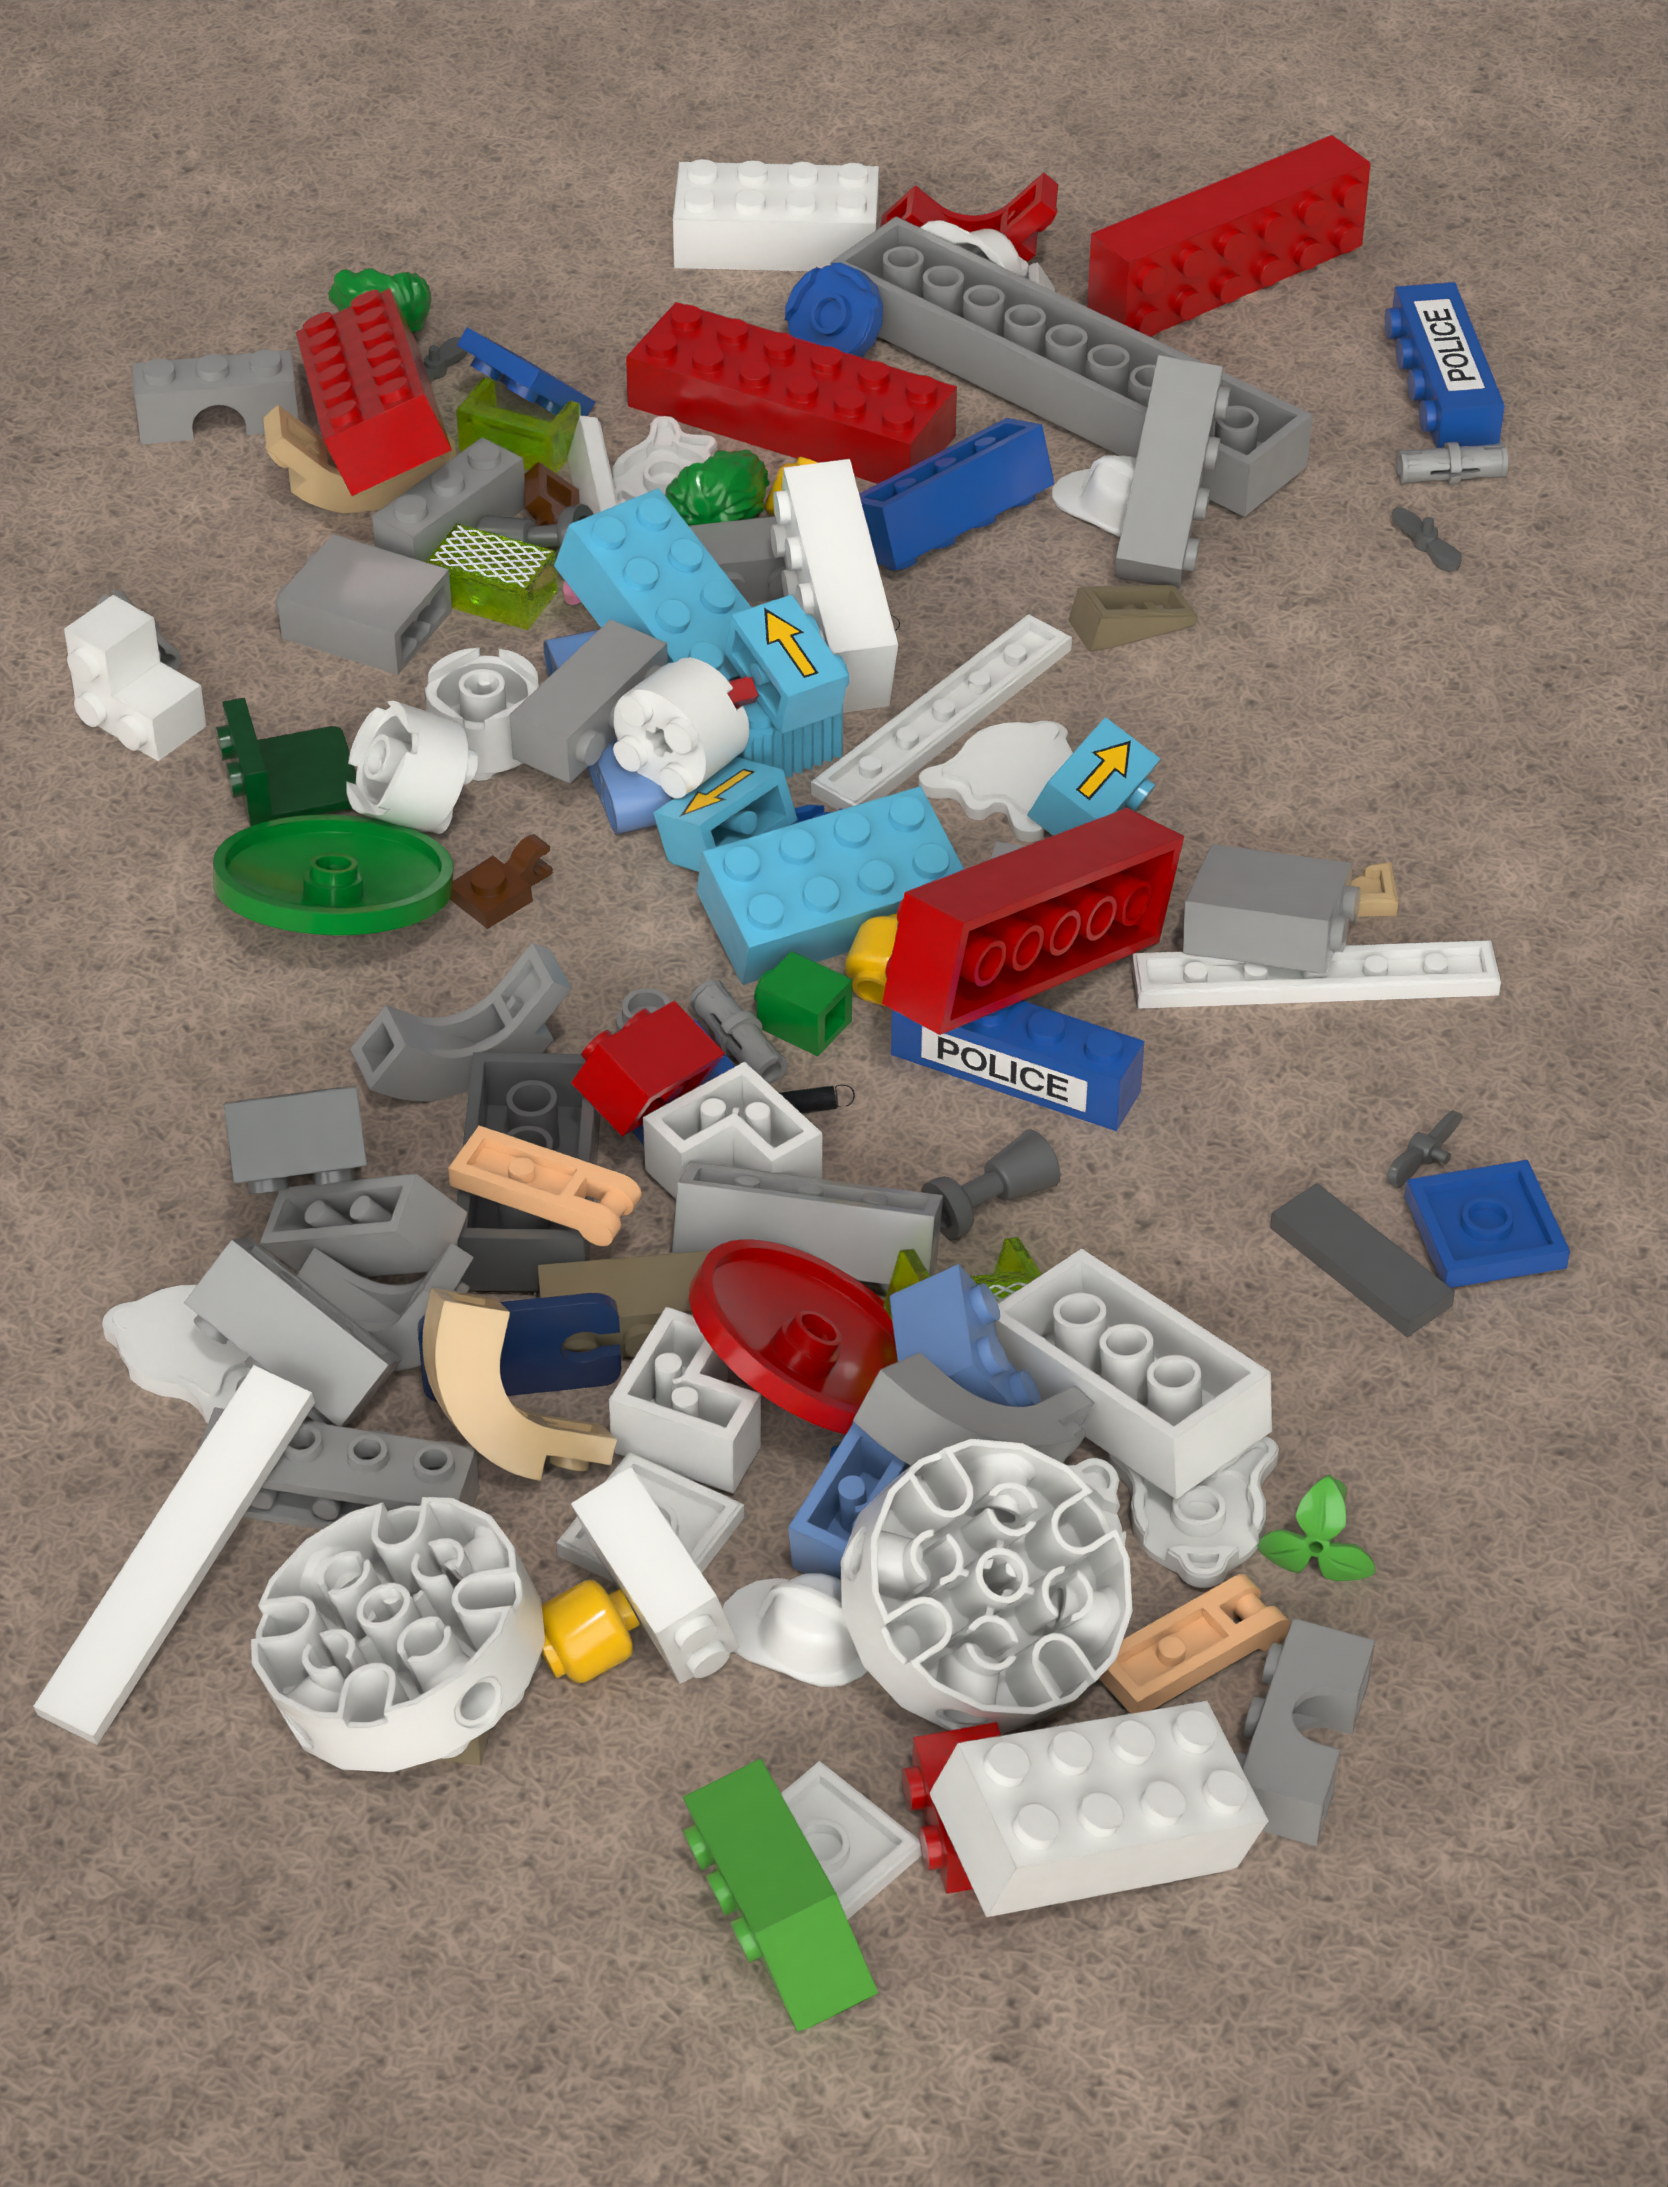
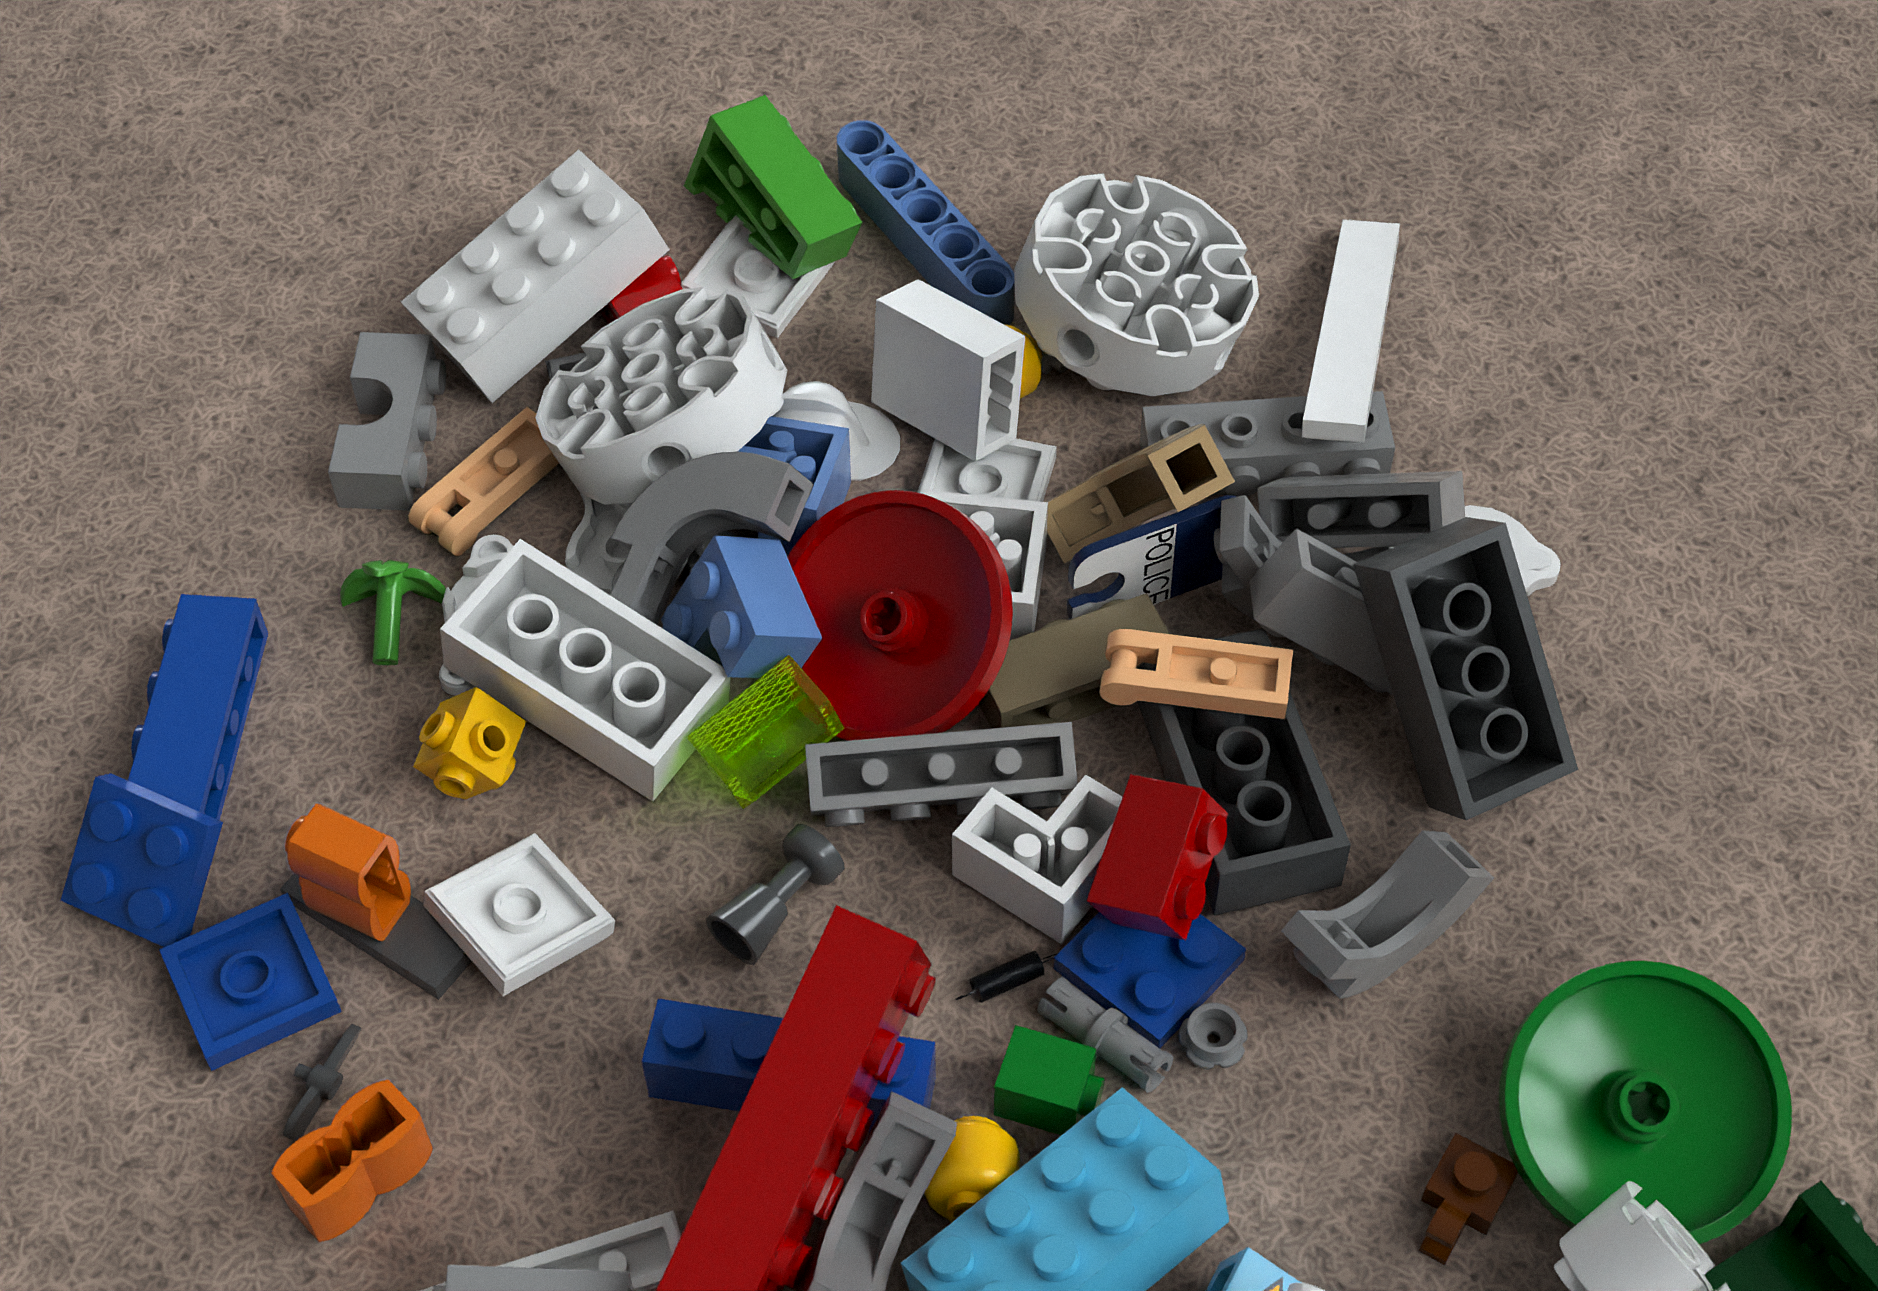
camera: 165 degrees right, 10 degrees up
(569, 1746) = (923, 221): none -> medium blue beam
(1231, 1224) = (518, 914): none -> white tile
(1268, 1337) = (469, 744): none -> yellow brick
(1384, 1215) = (348, 871): none -> orange brick
(1400, 1050) = (341, 1168): none -> orange brick
(1533, 1453) = (199, 701): none -> blue brick
(1572, 1299) = (141, 860): none -> blue plate

